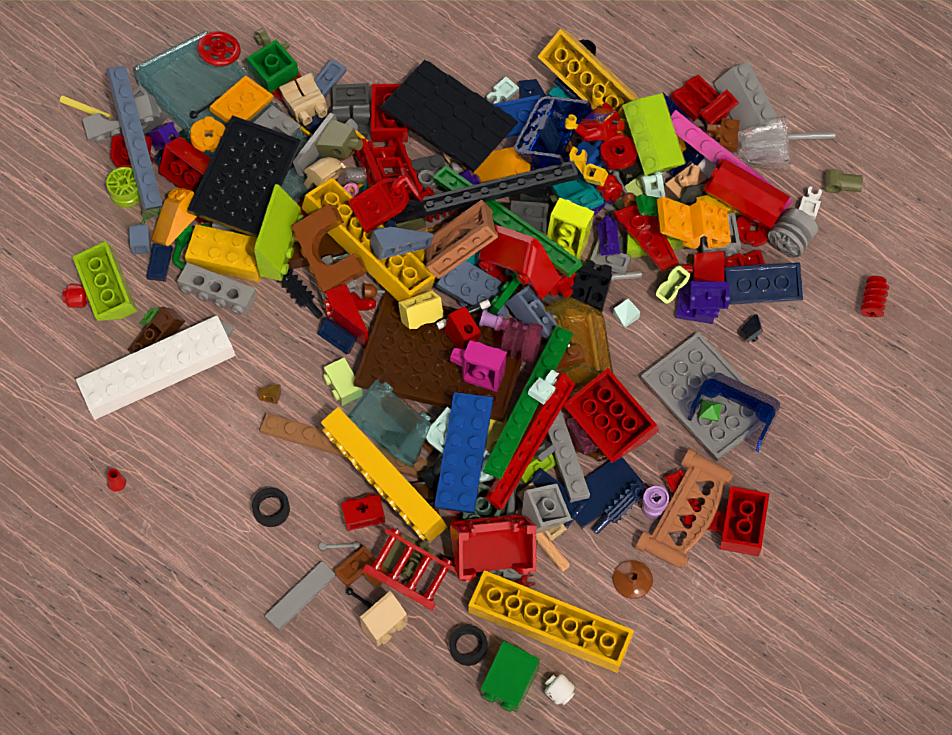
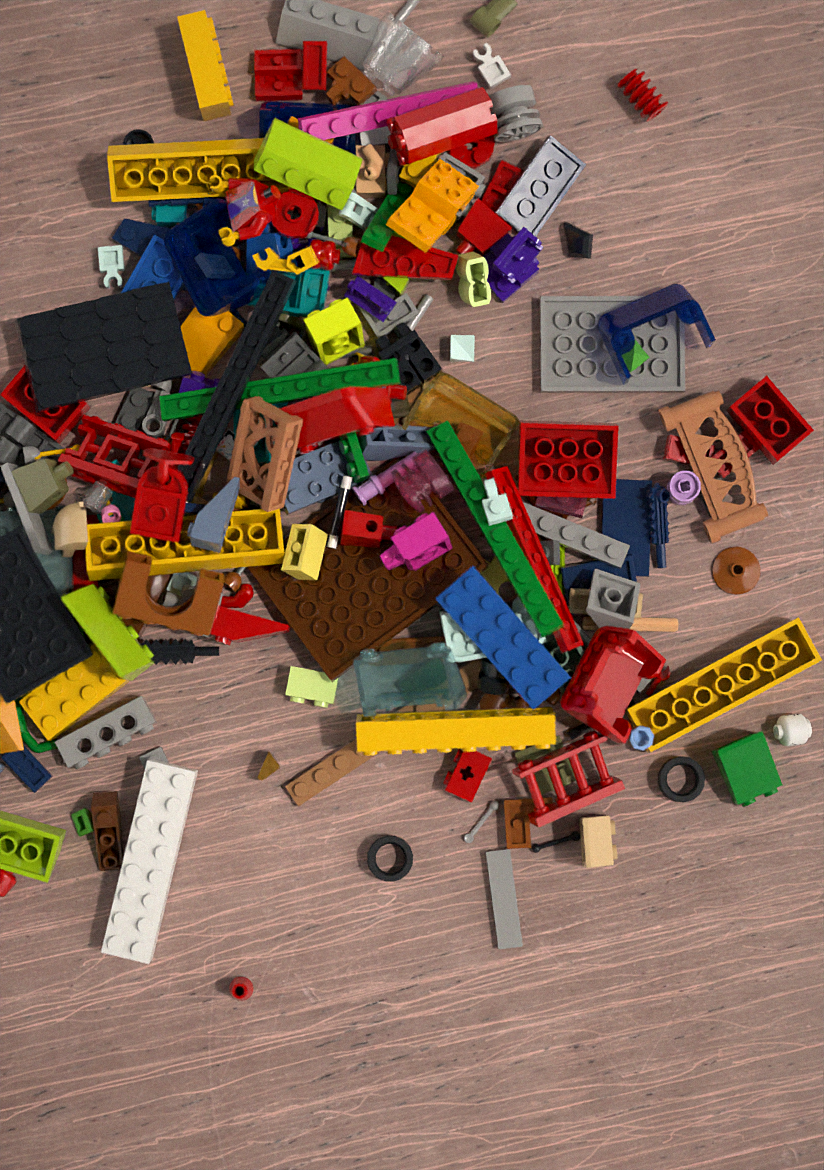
camera: 55 degrees left, 20 degrees up
(337, 335) = (256, 652): dark blue plate -> none
(472, 589) = (641, 737): none -> light blue tile
(663, 52) = (203, 59): none -> yellow brick

